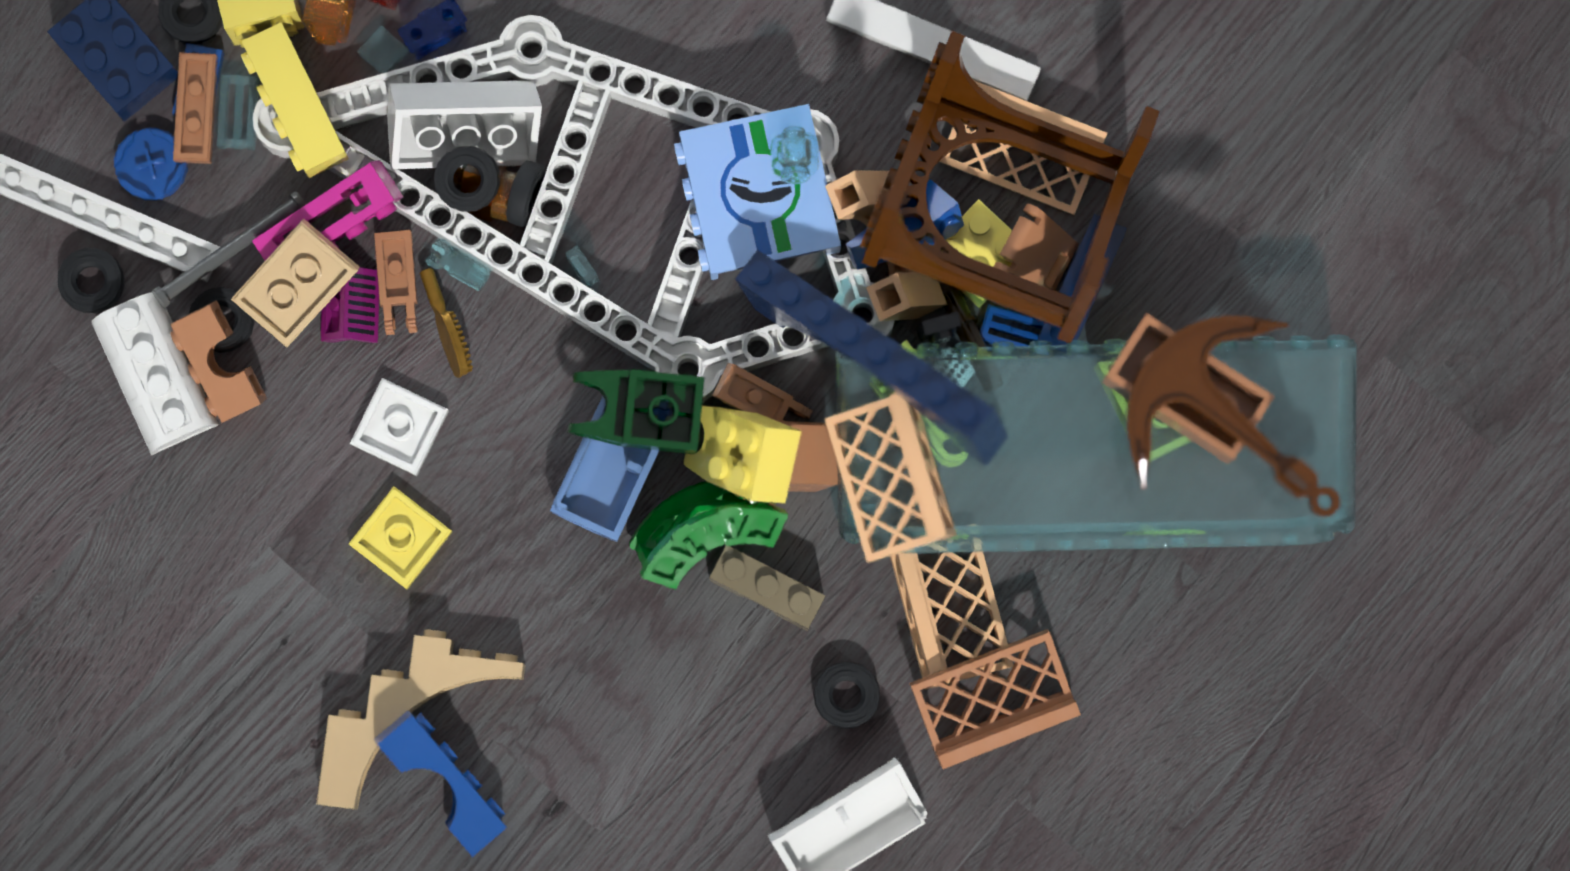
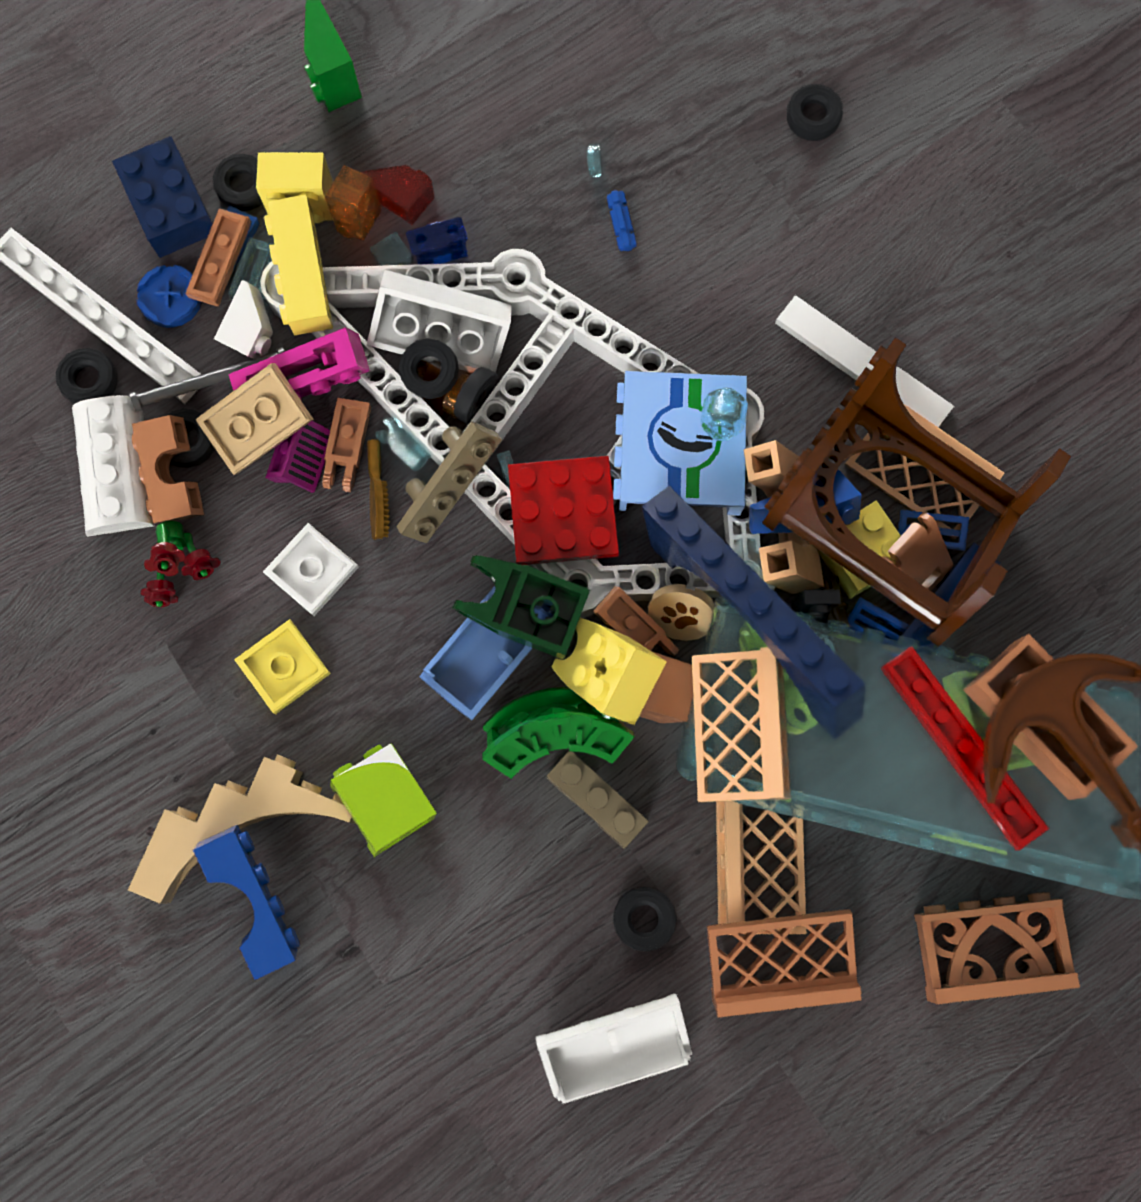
camera: 20 degrees right, 5 degrees down
(251, 178) = (246, 323): none -> white slope
(252, 459) = (165, 560): none -> dark red plant
(515, 319) = (435, 499): none -> dark tan plate
(547, 644) = (382, 798): none -> lime panel
(652, 296) = (563, 510): none -> red plate
(803, 371) = (681, 611): none -> tan tile
(1079, 207) = (962, 533): none -> blue tile
(1109, 437) = (962, 746): none -> red tile
(1254, 640) = (1039, 974): none -> nougat fence

